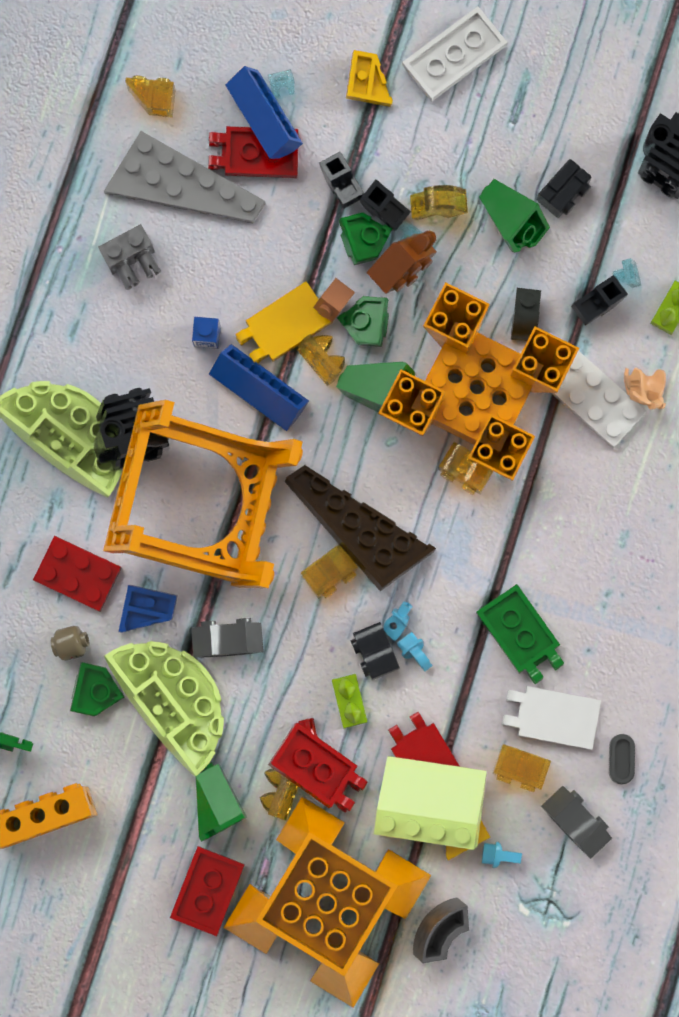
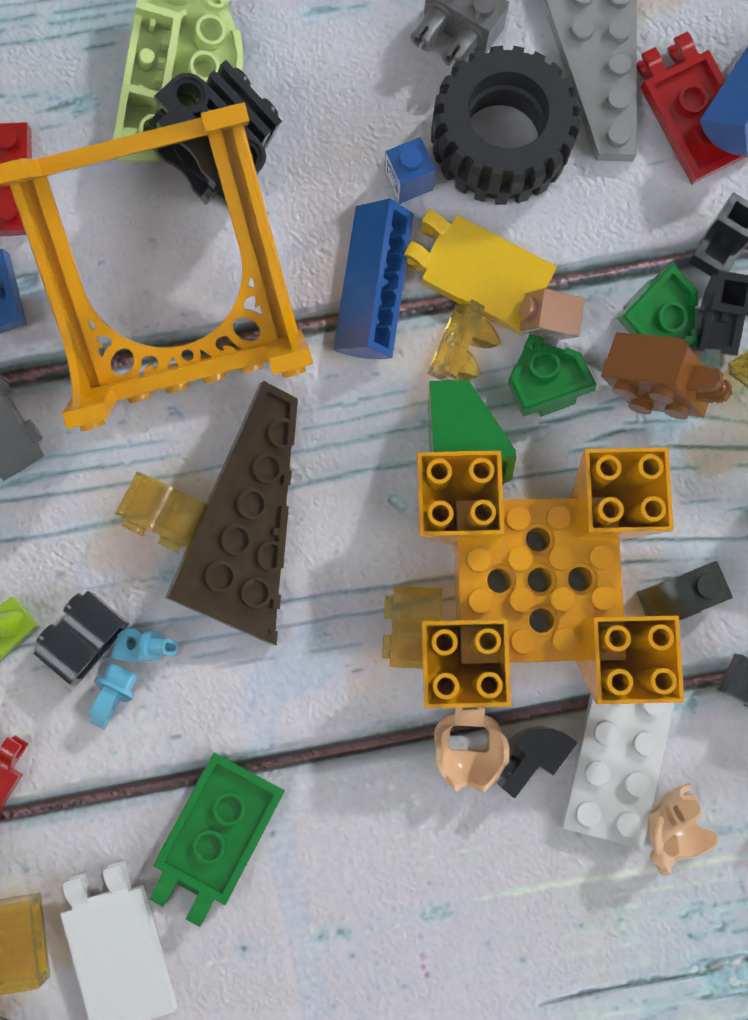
camera: 55 degrees right, 0 degrees up
(205, 235) = (512, 81): none -> black tyre
(557, 477) = (470, 767): none -> light nougat helmet
(565, 438) = (538, 747): none -> black brick

